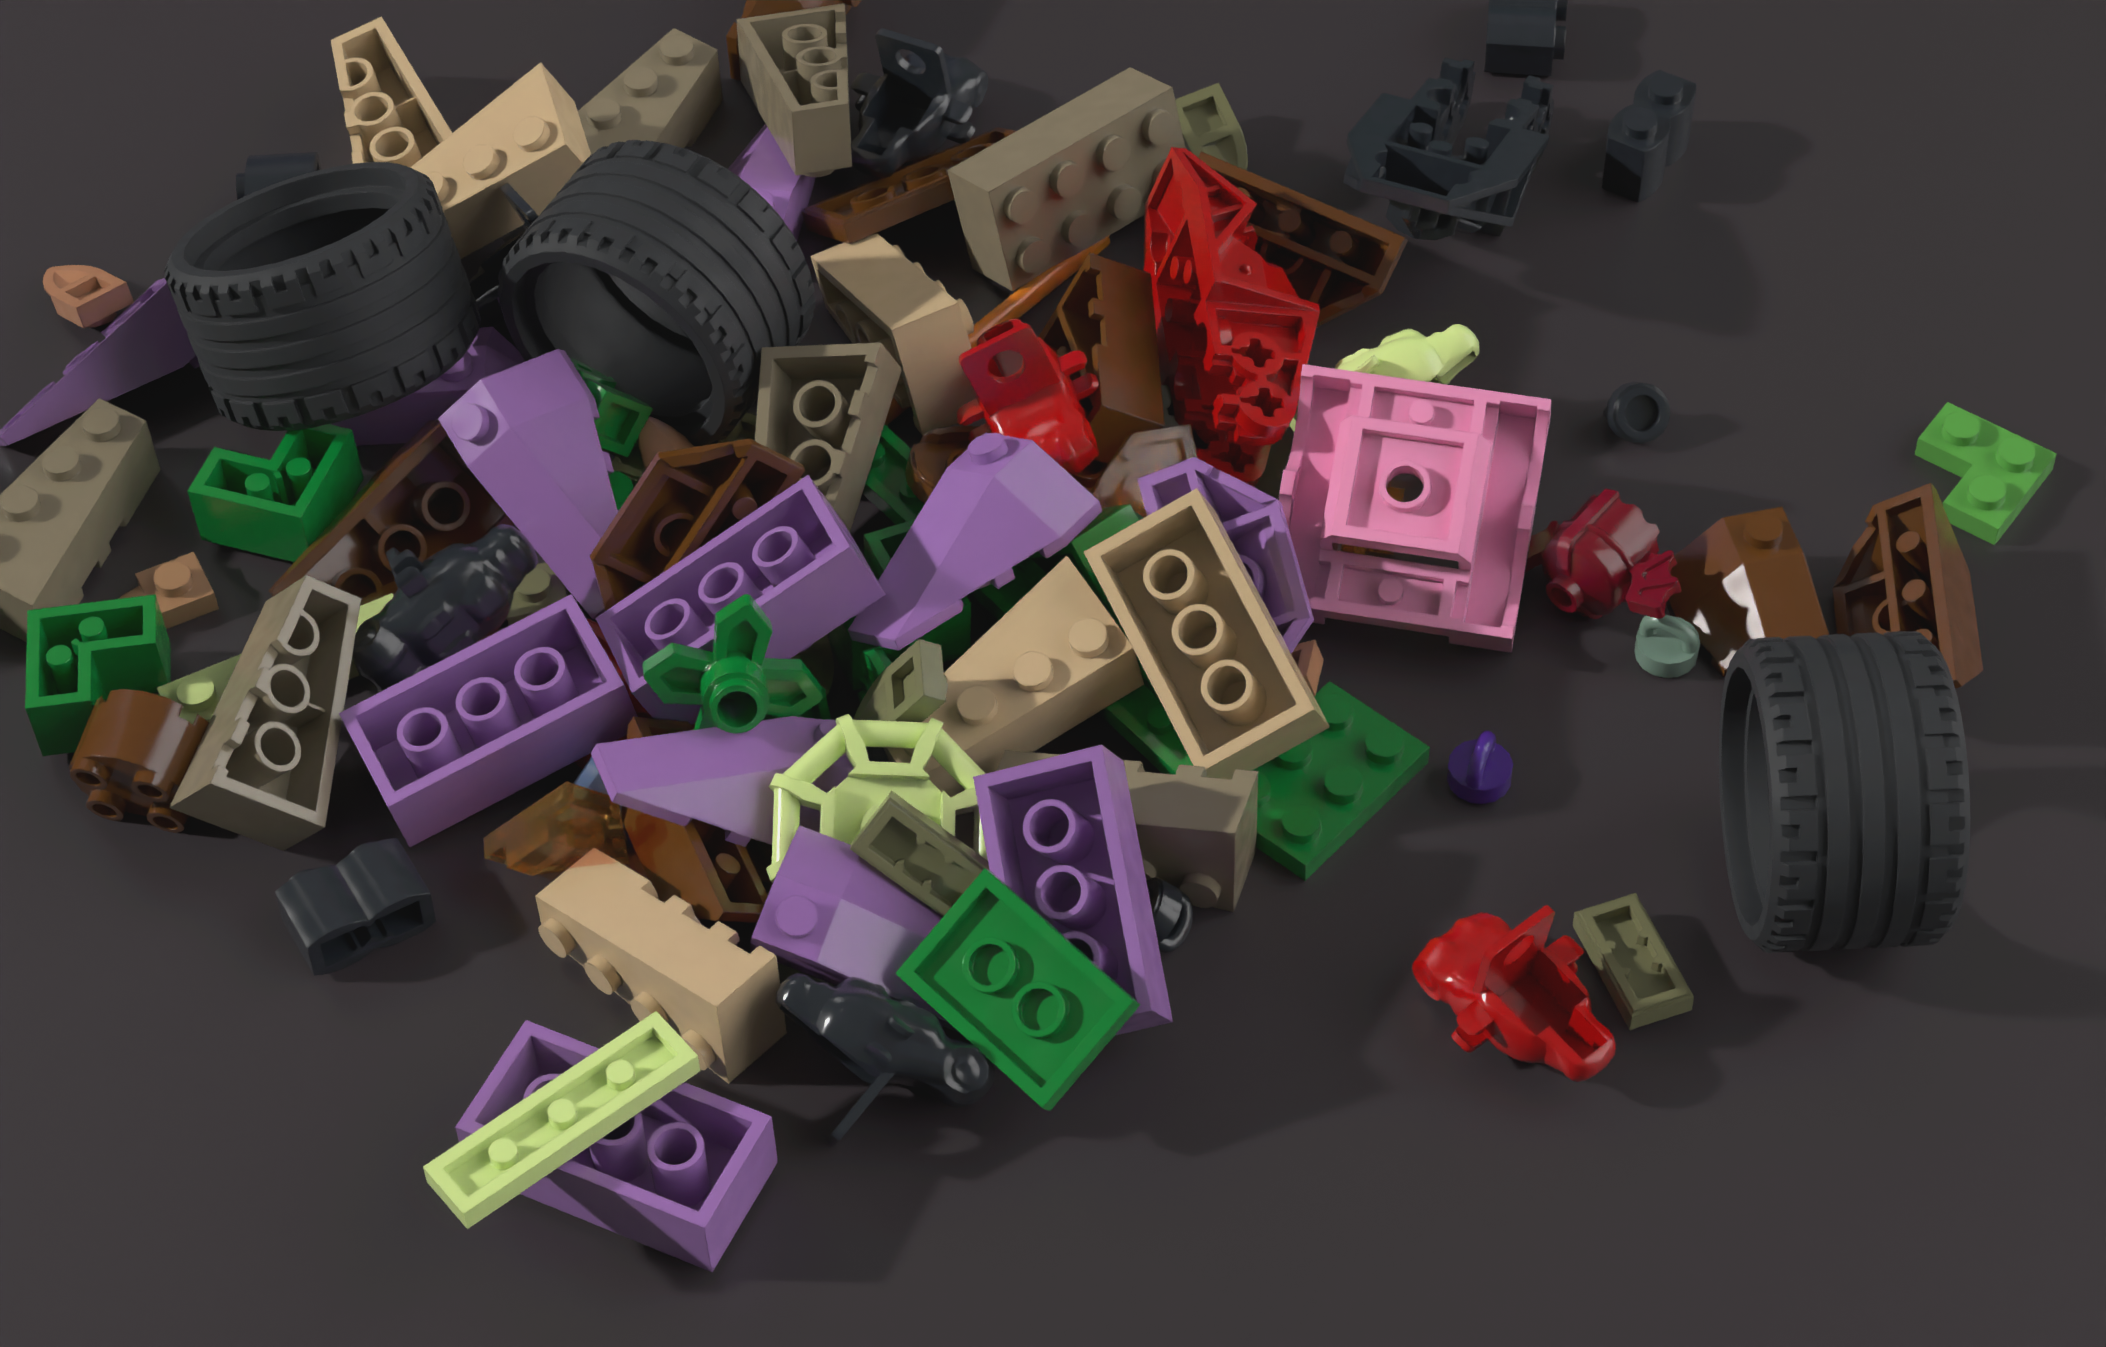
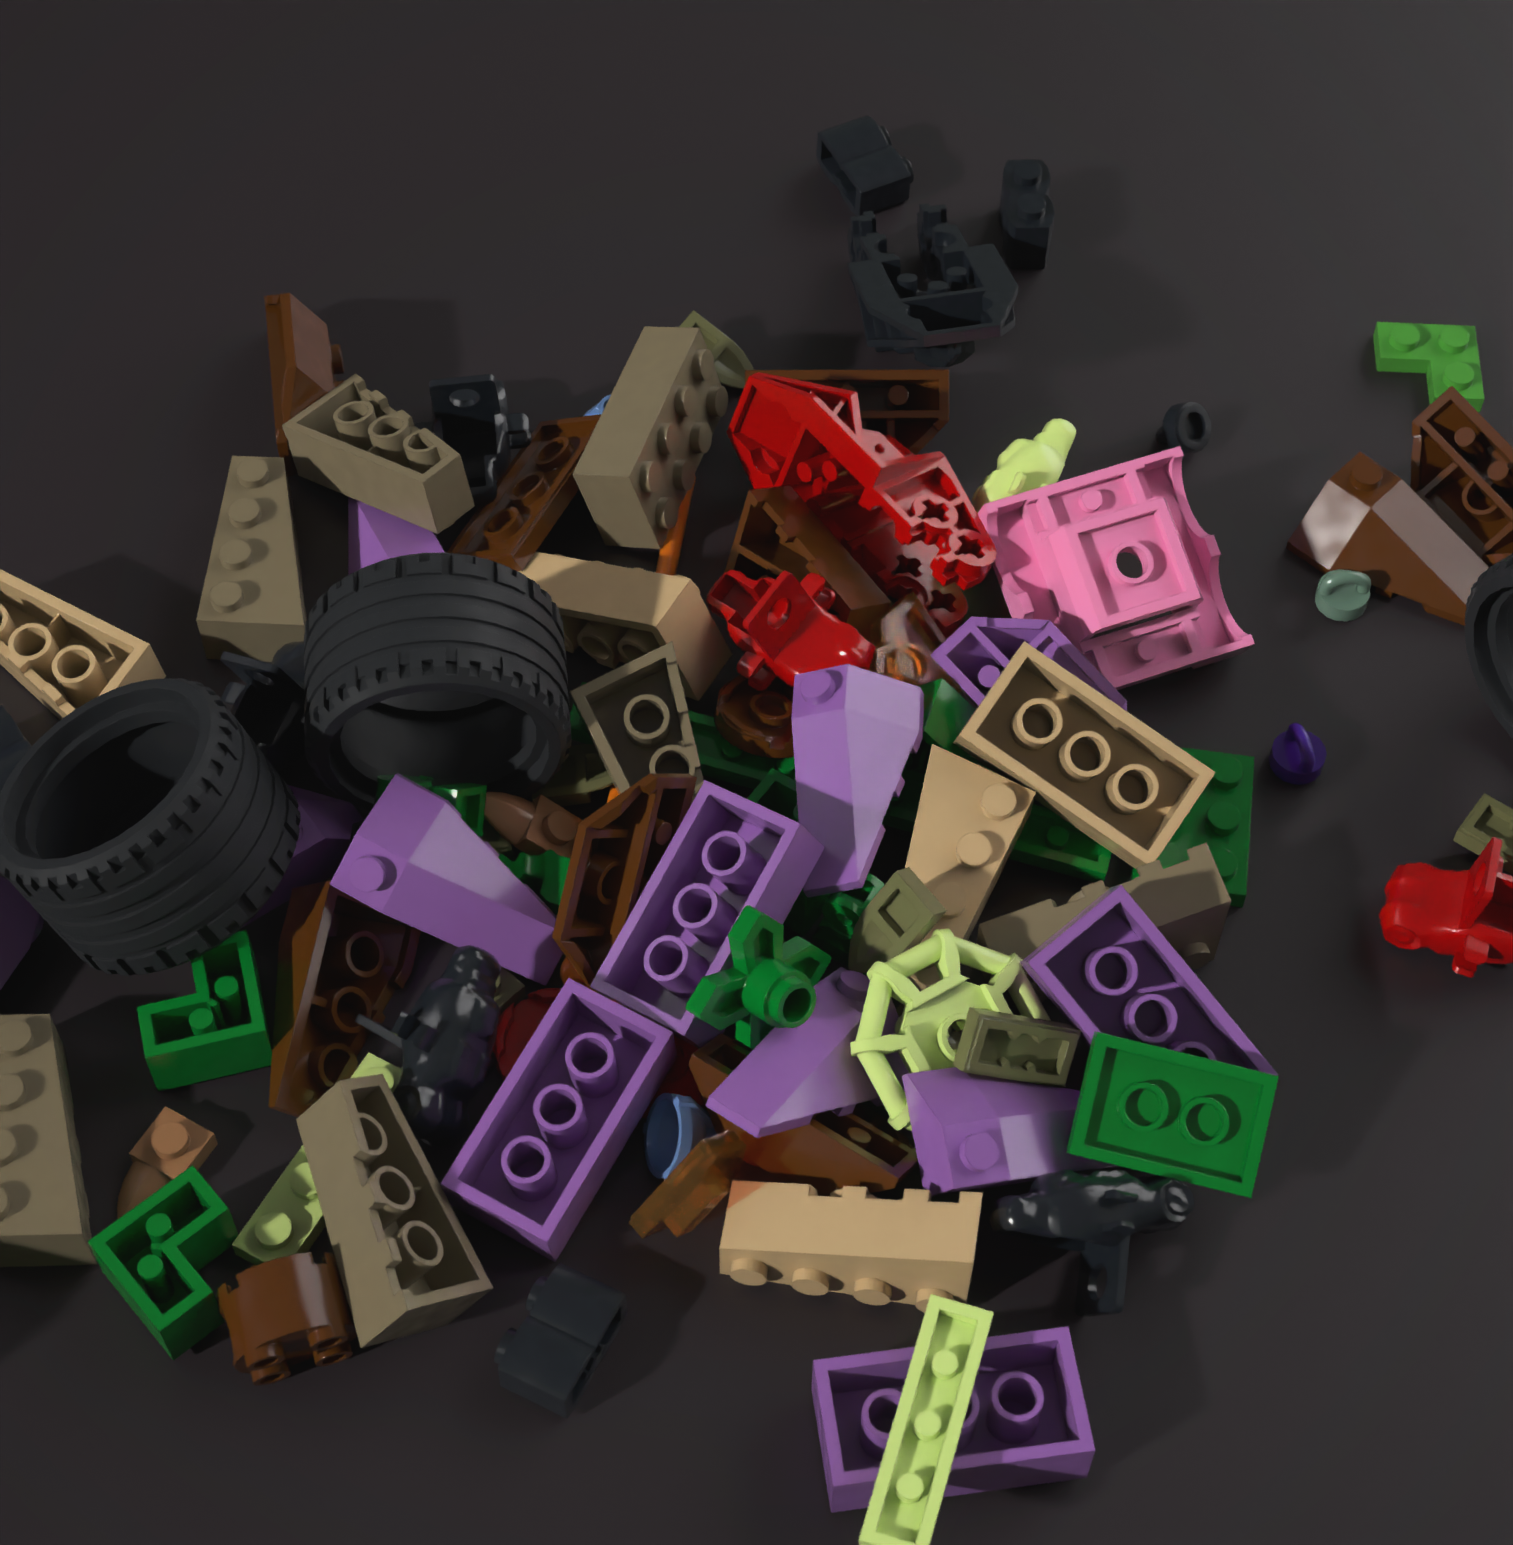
camera: 35 degrees left, 5 degrees up
(519, 138) = (197, 618): tan wedge -> none
(1604, 560) = (1267, 546): dark red helmet -> none

